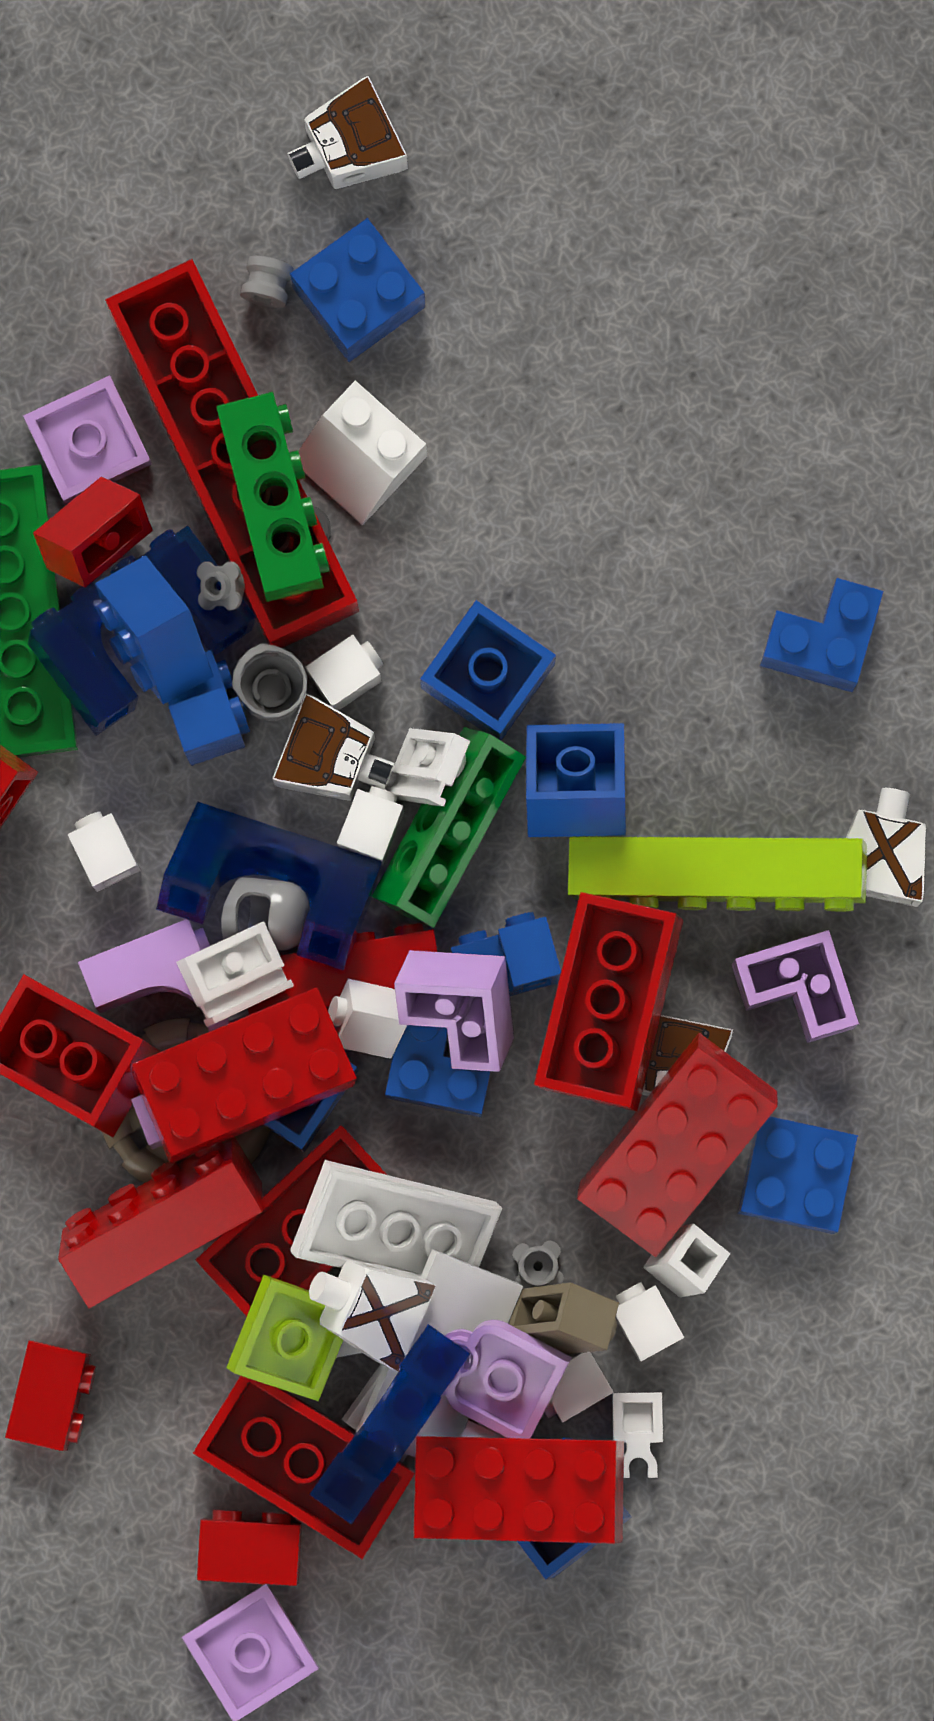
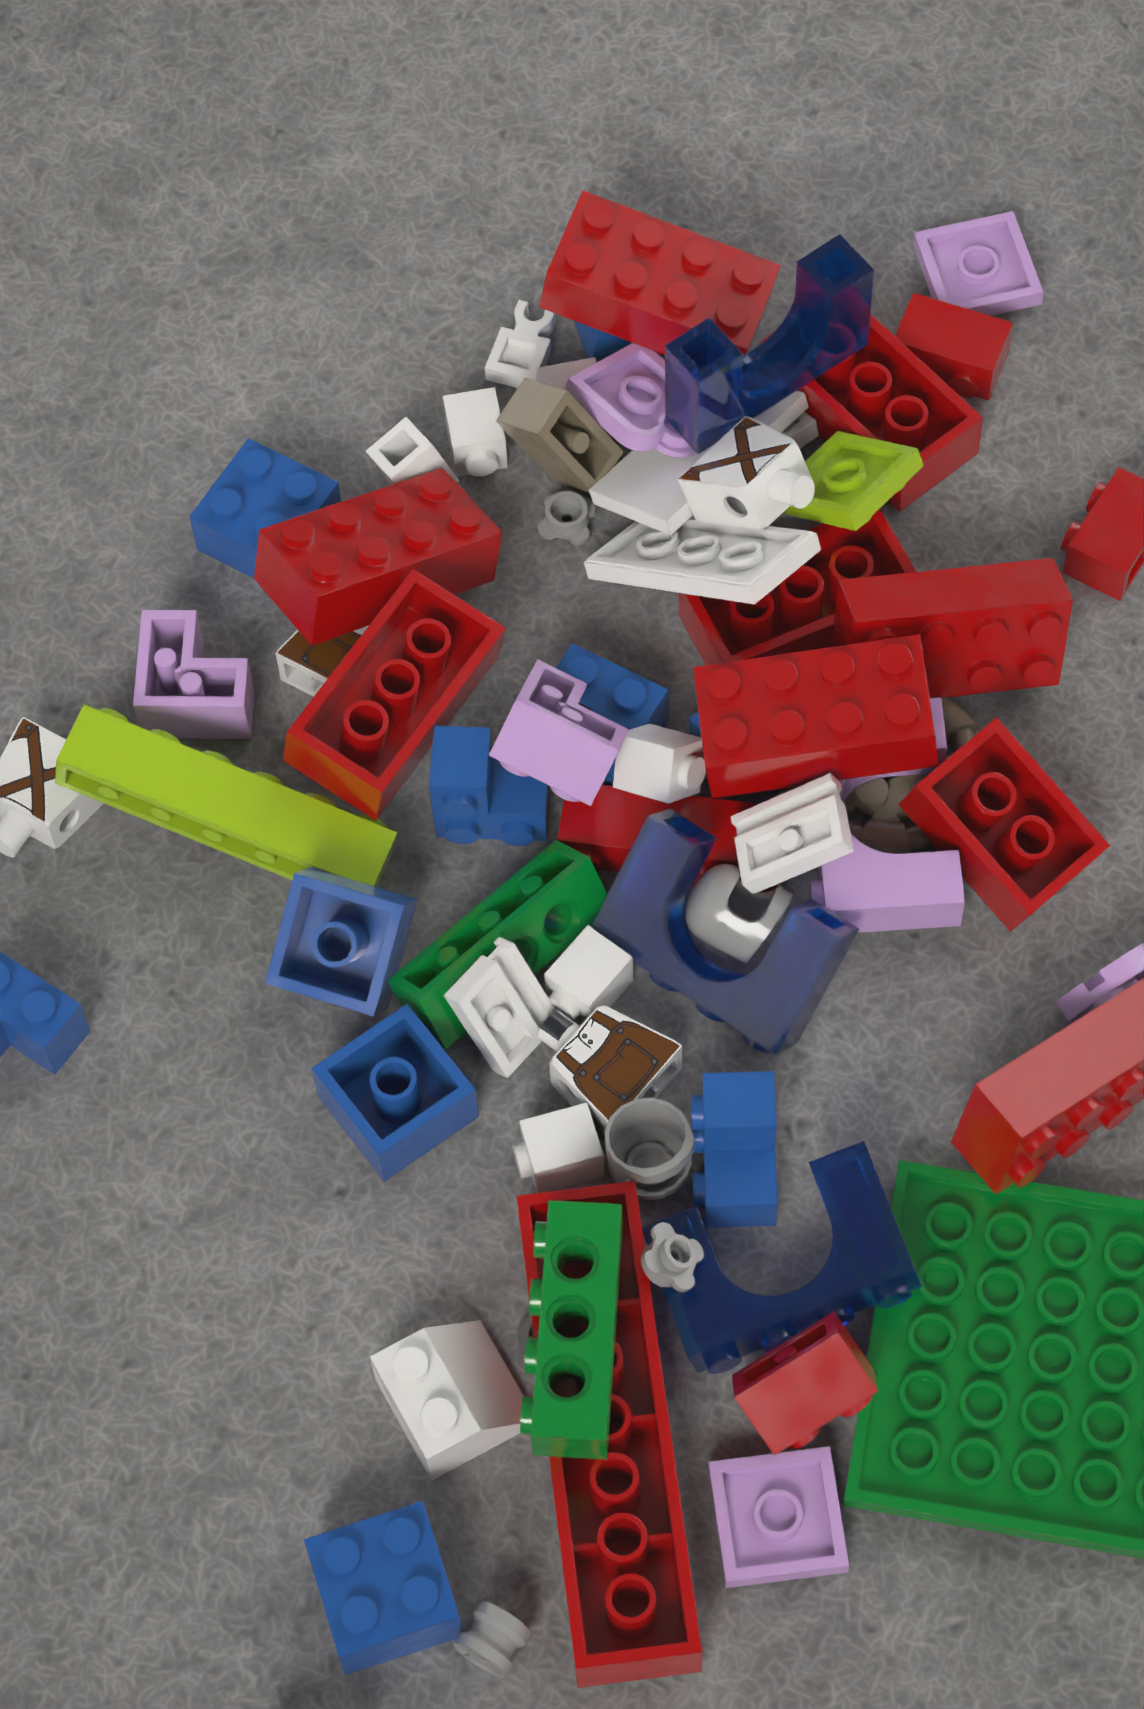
camera: 160 degrees left, 20 degrees down
(103, 850) = (900, 1040): white brick -> none
(152, 630) = (764, 1218): blue brick -> none

